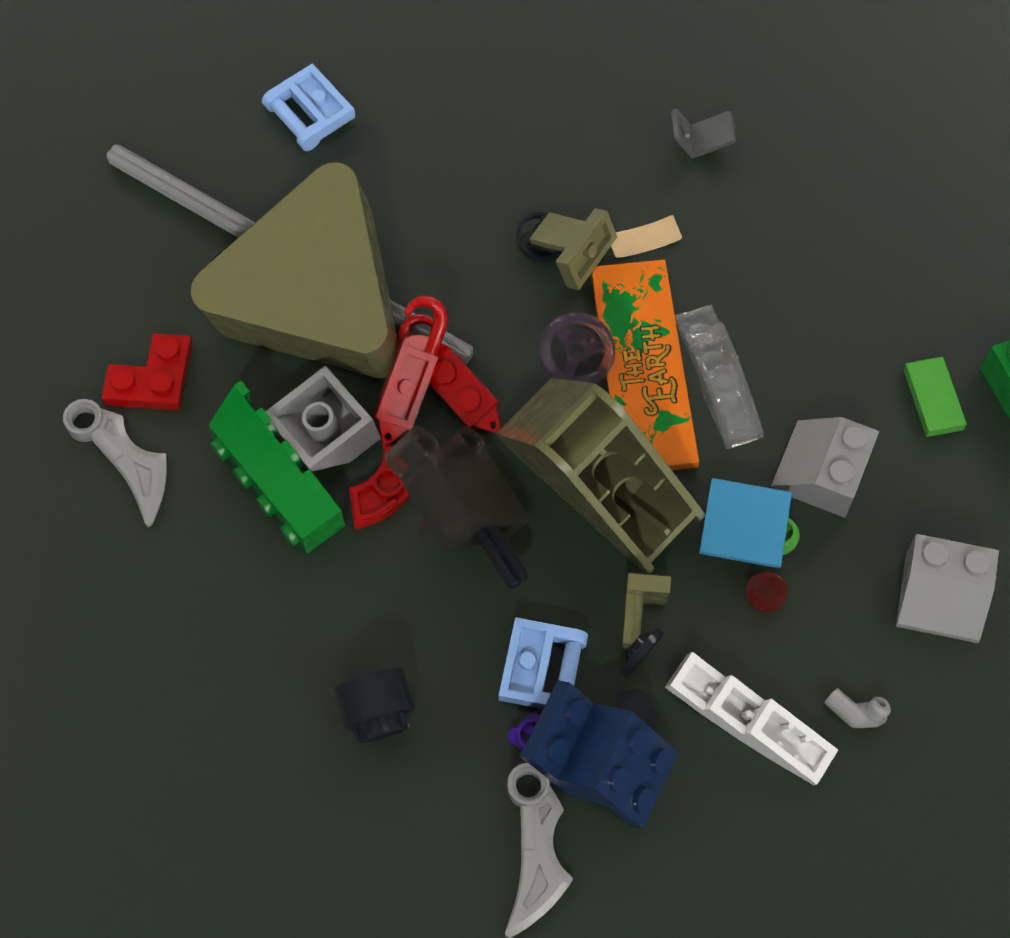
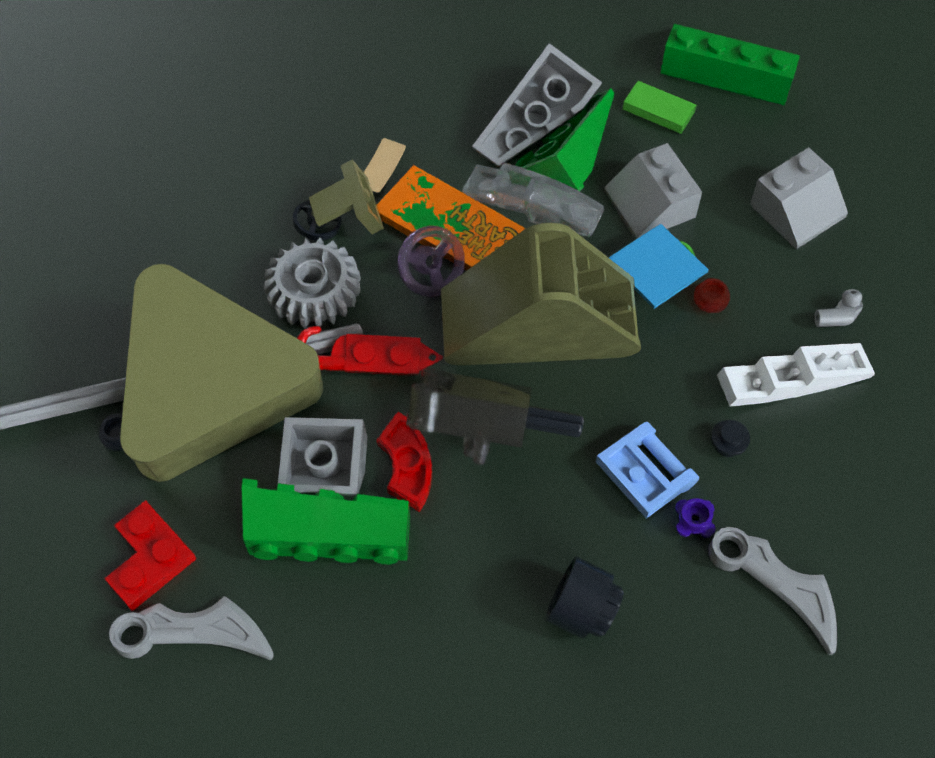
camera: 50 degrees left, 5 degrees down
(316, 98) = (47, 266): light blue plate -> none
(410, 373) = (344, 371): red plate -> none
(481, 262) = (326, 265): none -> light grey gear
(599, 754) = (753, 479): dark blue bracket -> none
(641, 590) = (666, 384): olive piece -> none
(704, 135) = (348, 72): dark grey bracket -> none
(790, 367) = (573, 147): none -> green wedge
(828, 299) = (540, 103): none -> light grey wedge

